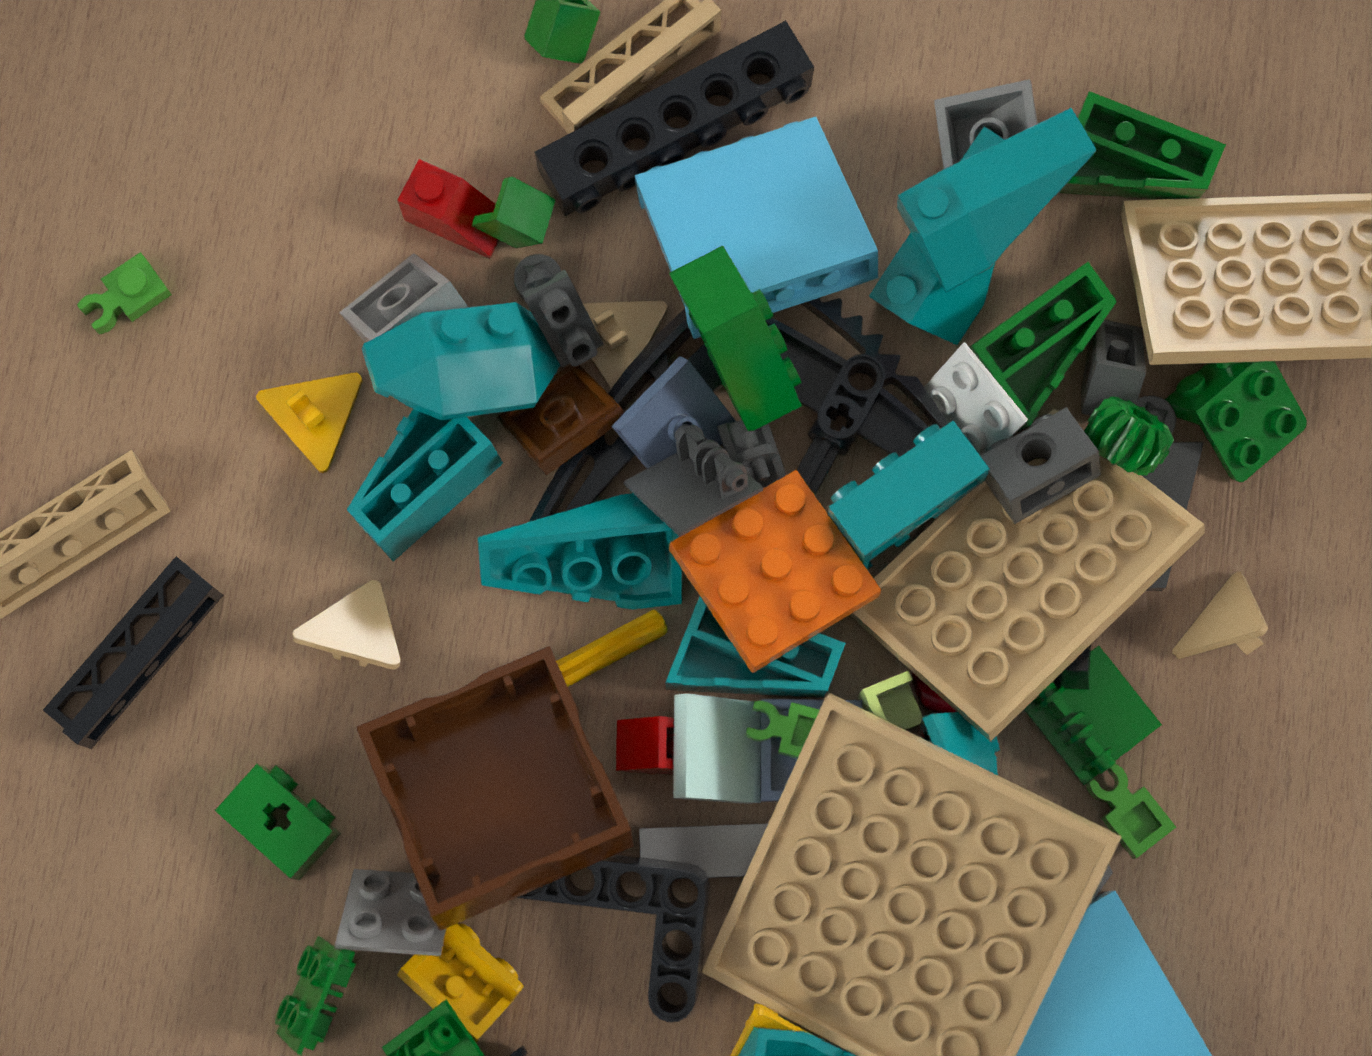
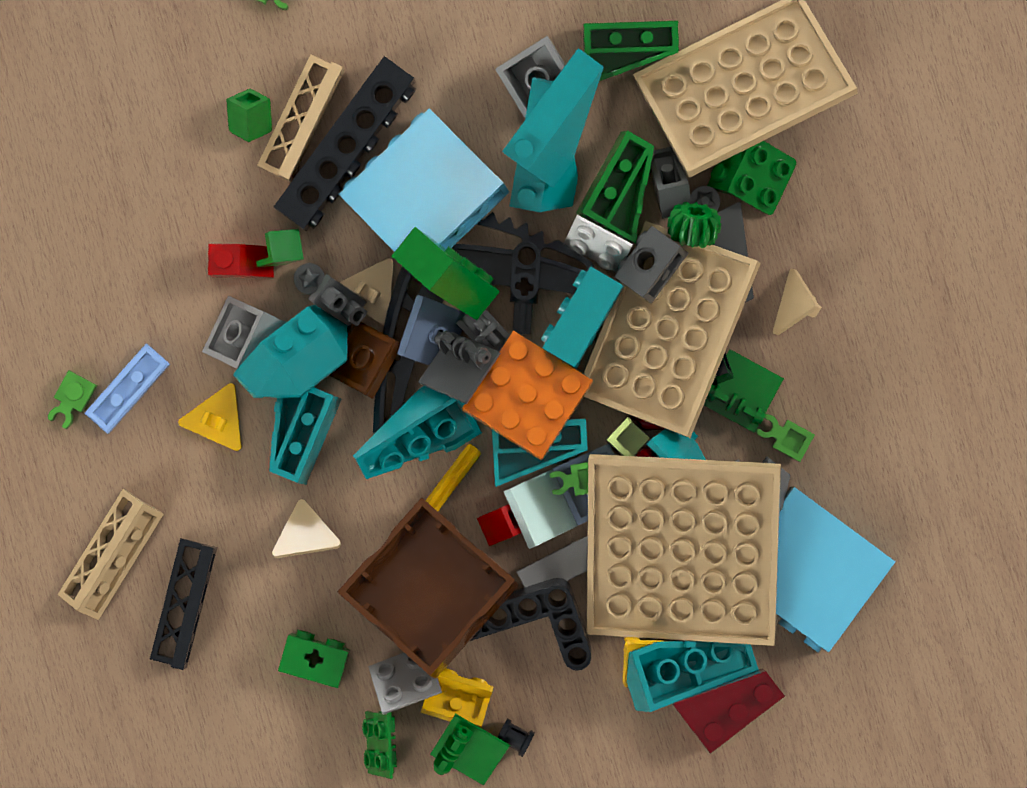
camera: 20 degrees left, 10 degrees up
(209, 315) = (127, 388): none -> light blue tile

